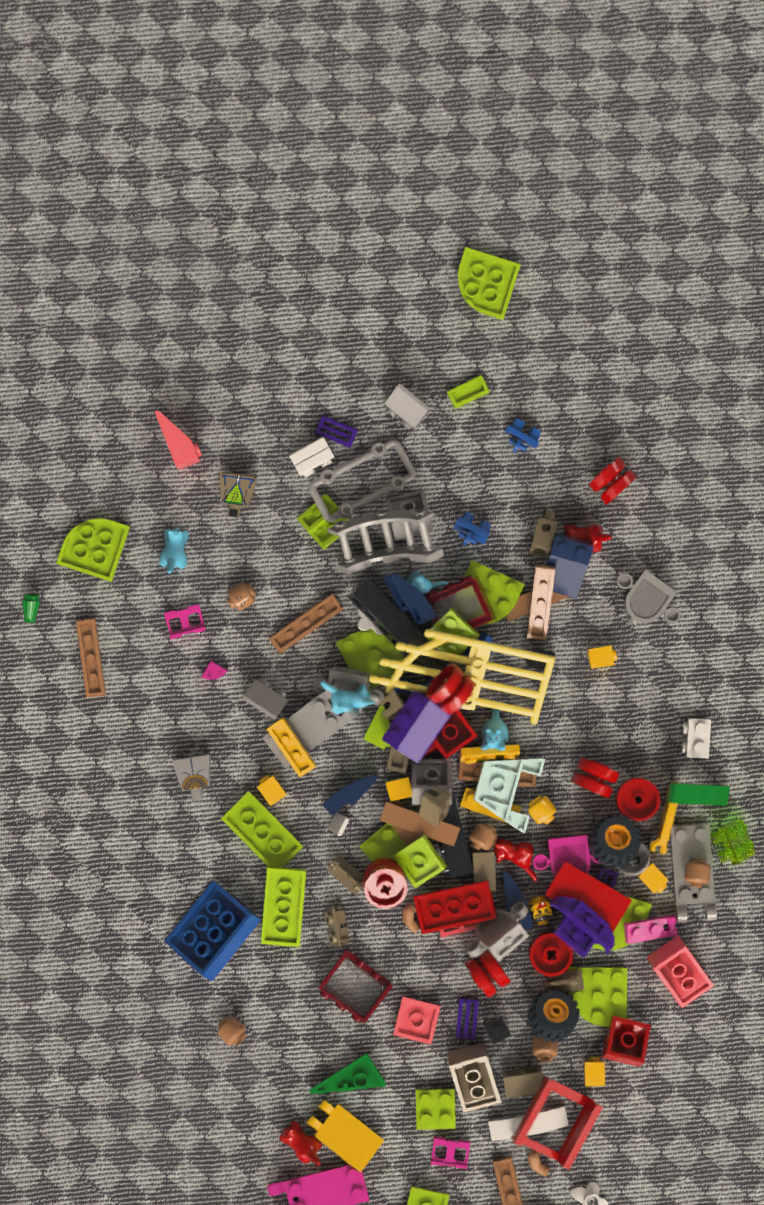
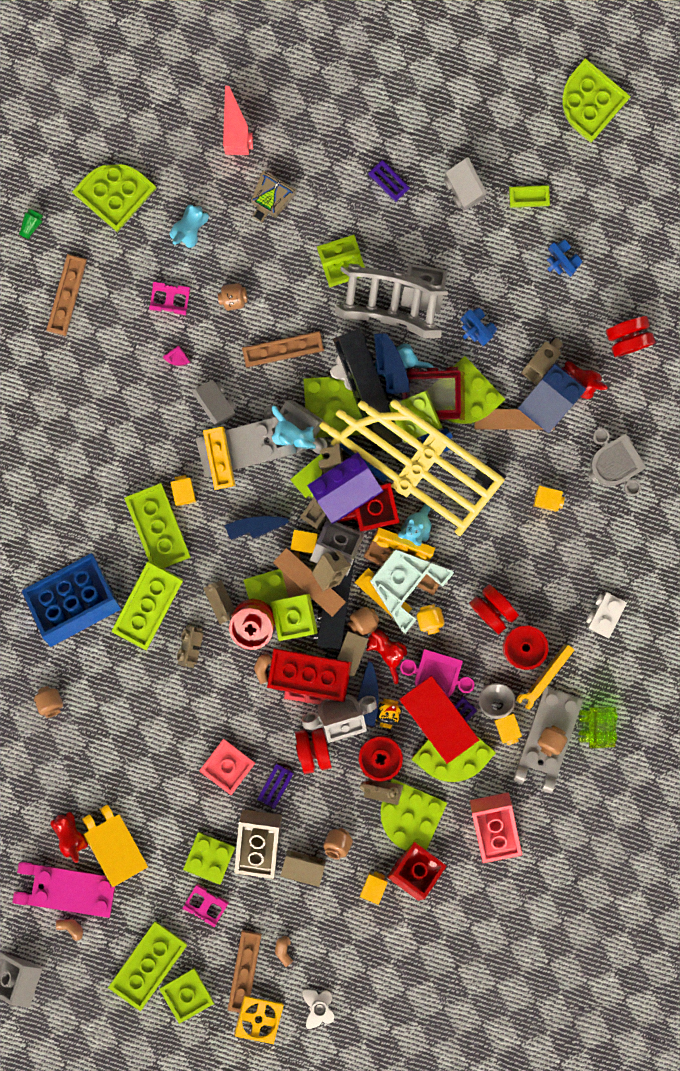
camera: 25 degrees right, 0 degrees up
(193, 774) = (116, 445): light grey torso -> none
(311, 457) = (355, 194): white brick -> none
(338, 824) = (232, 550): white slope -> none
(346, 510) = (366, 257): light grey bar -> none
(355, 987) = (182, 710): clear window -> none
(356, 1075) = (149, 794): green wing -> none
(450, 689) = (393, 465): red wheel -> none
(497, 1030) = (299, 808): black brick -> none
(541, 602) = (513, 422): tile -> none
(545, 1121) = (290, 910): white slope -> none
(553, 1015) = (358, 817): black wheel -> none
(577, 1133) = (334, 938): piece -> none
(581, 926) = (421, 744): dark purple plate -> none
(615, 840) = (487, 676): black wheel -> none
(650, 929) = (485, 775): dark pink plate -> none
(698, 794) = (585, 666): green tile -> none

